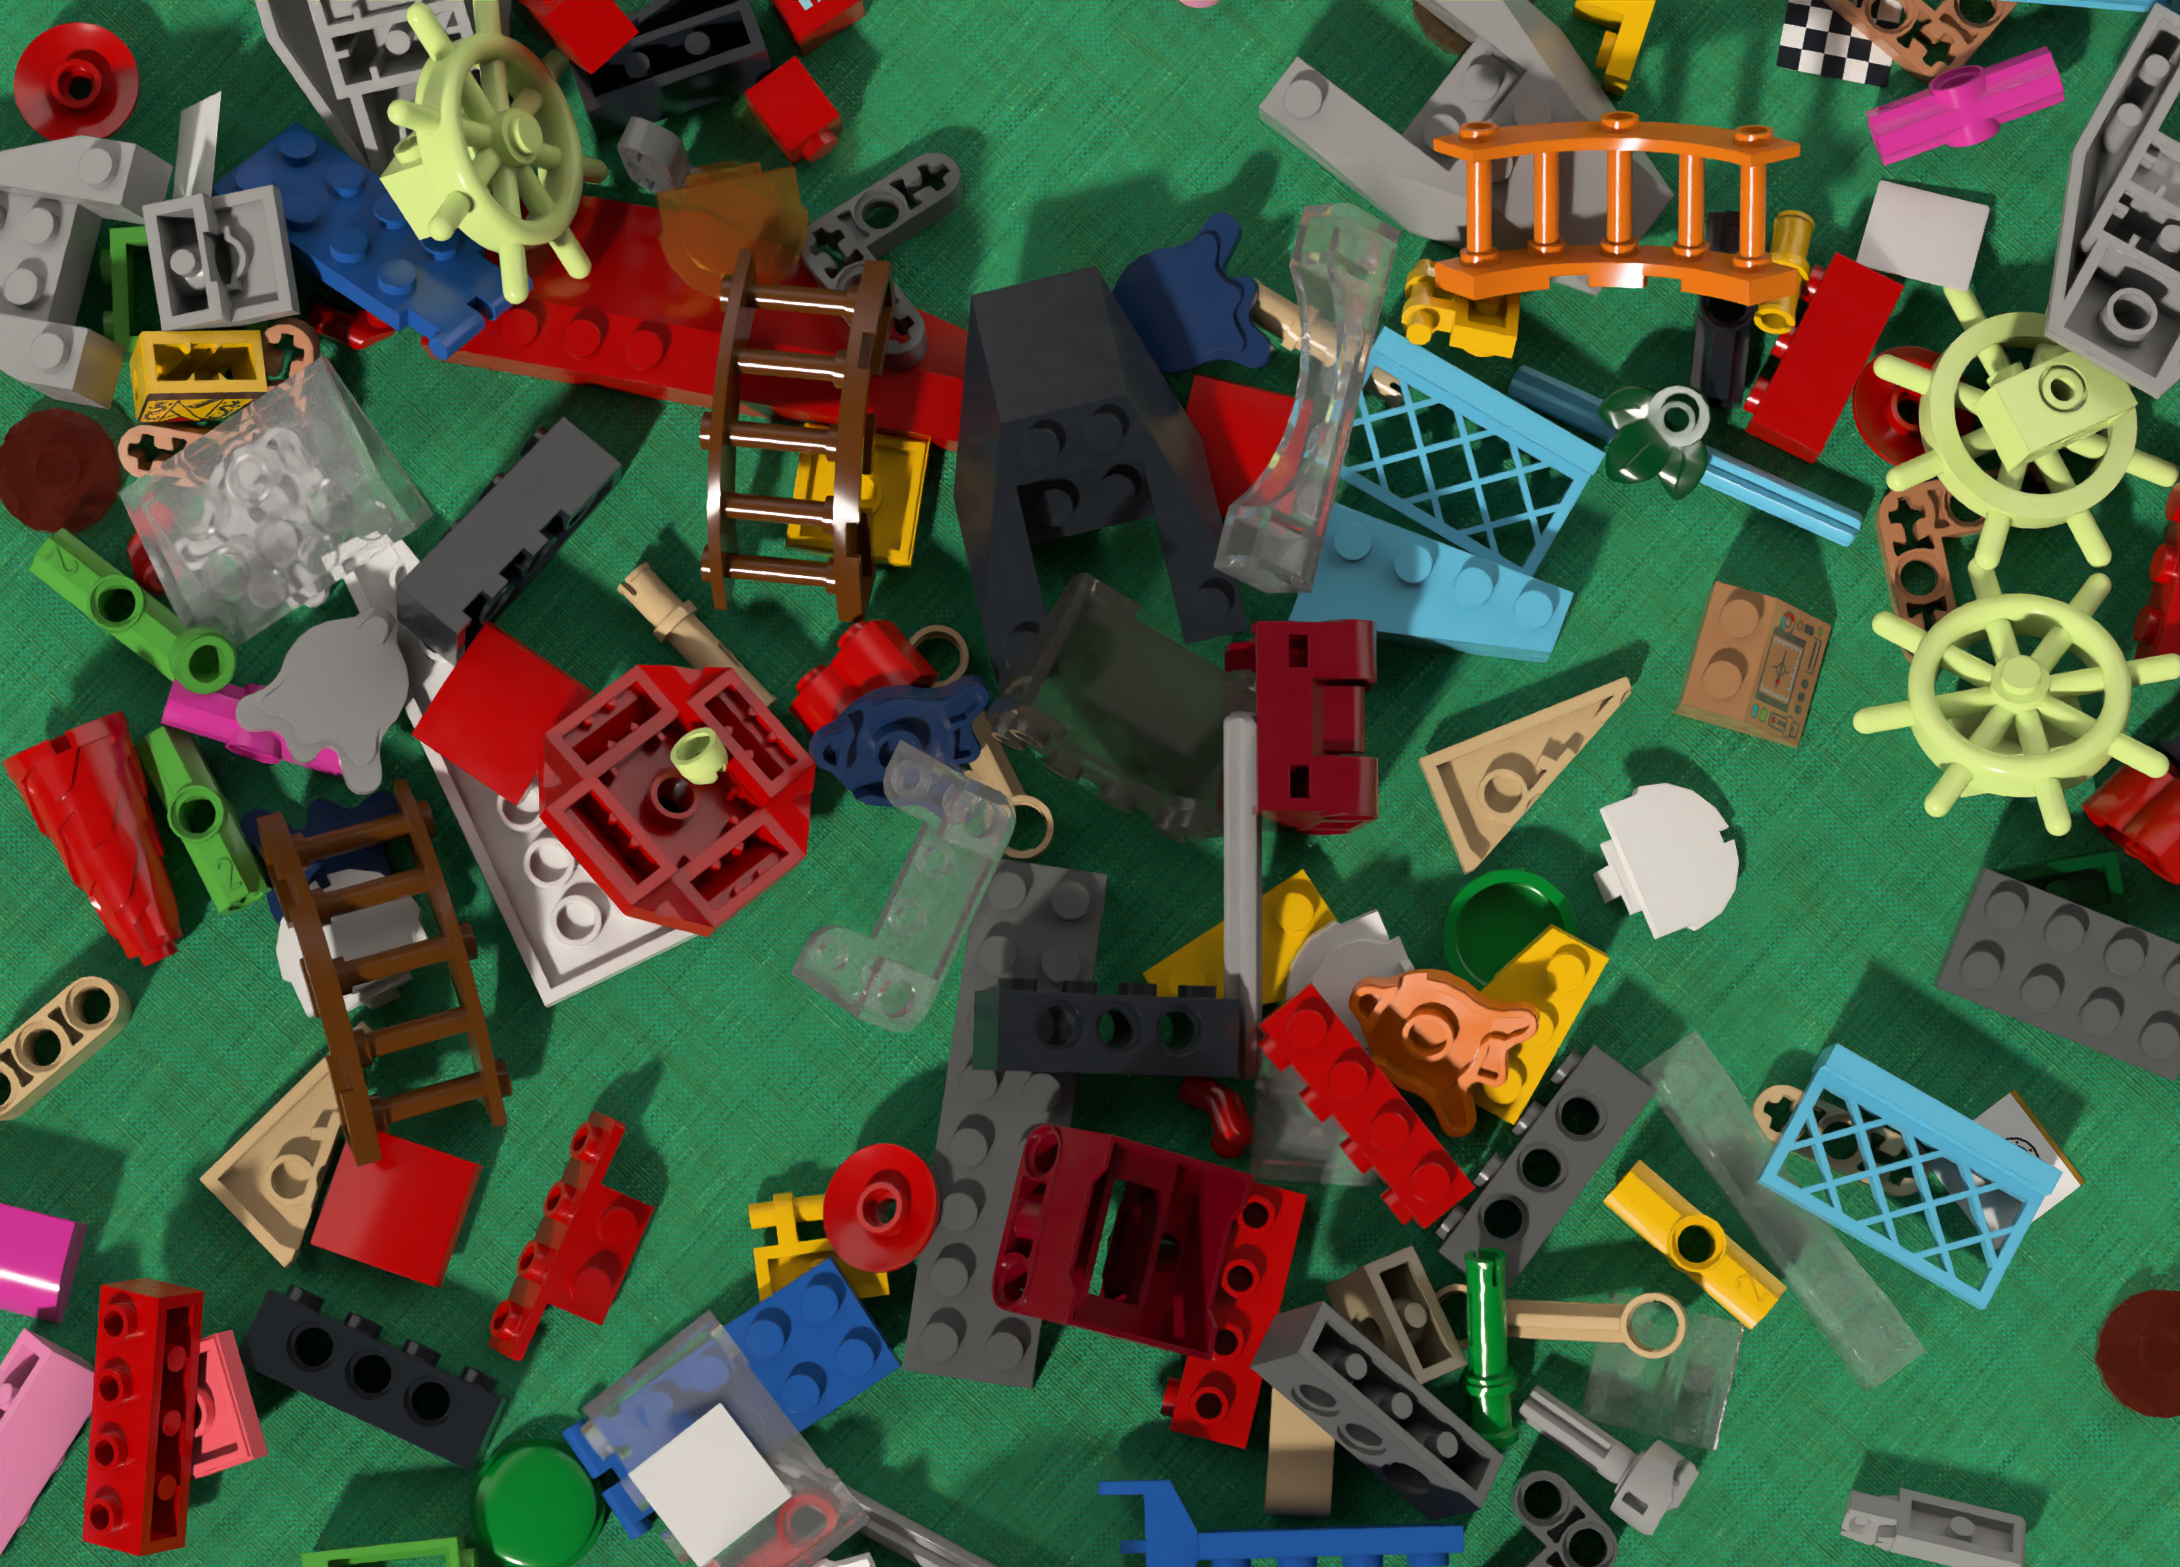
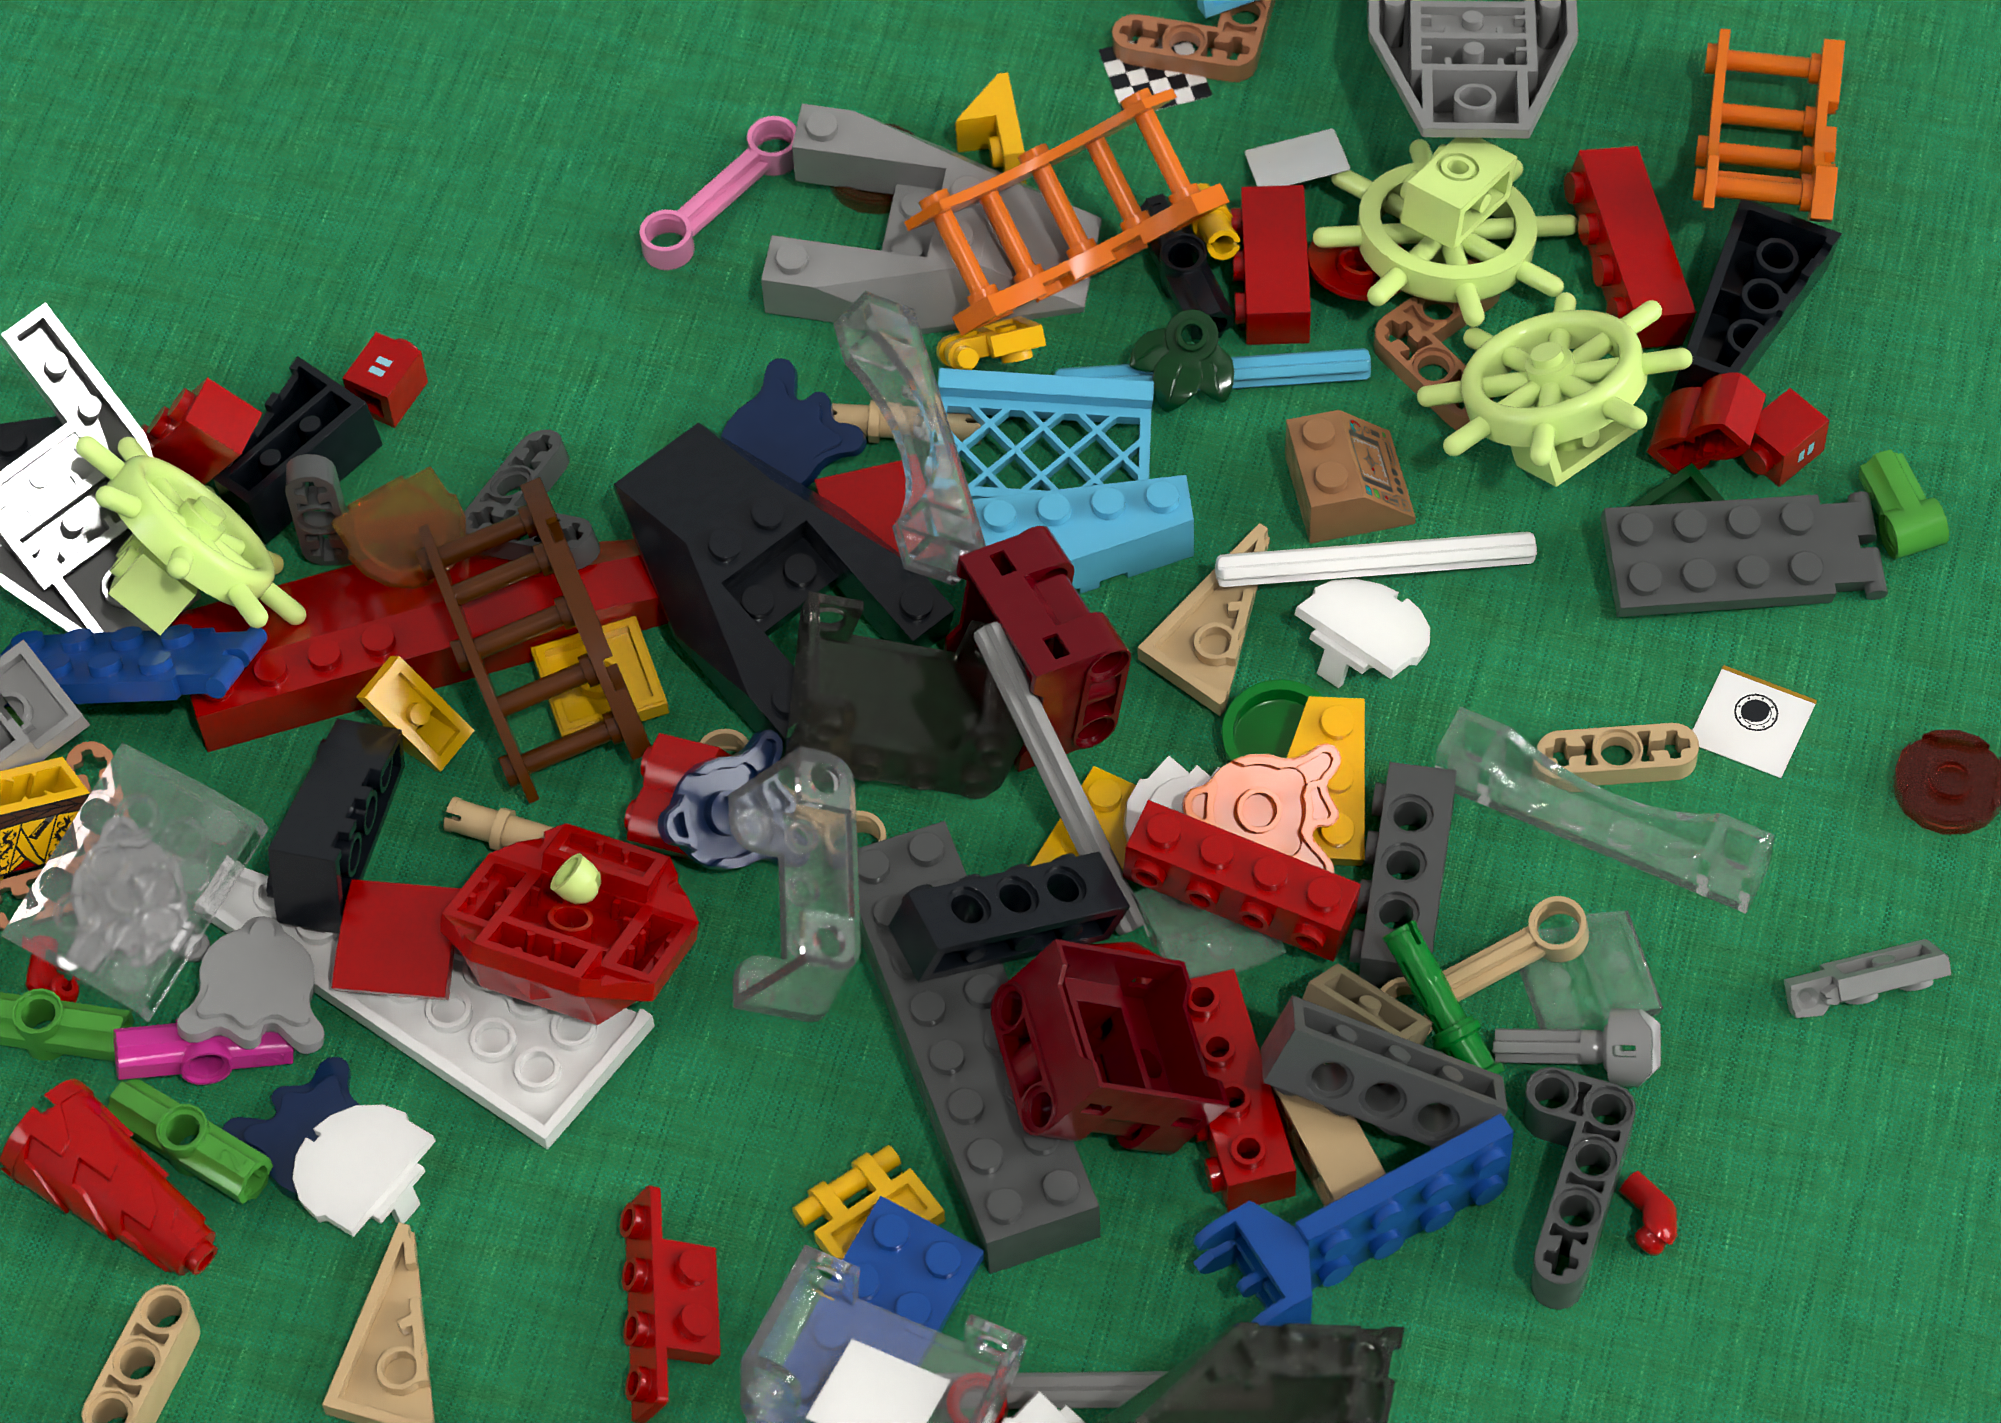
camera: 30 degrees left, 25 degrees down
(193, 668) = (124, 1019): bright green piece -> none
(332, 978) = (291, 1132): reddish brown fence -> none
(352, 330) = (151, 739): red arm -> none
(398, 1209) = (499, 1346): red slope -> none
(648, 444) = (406, 702): none -> yellow slope
(795, 113) = (406, 447): red brick -> none
(859, 1203) = (888, 1126): red dish -> none
(1722, 786) = (1375, 559): none -> white axle
(1727, 1272) = (1585, 875): yellow piece -> none
(1935, 1127) = (1681, 704): medium azure fence -> none
(1965, 106) = (1275, 69): dark pink piece -> none

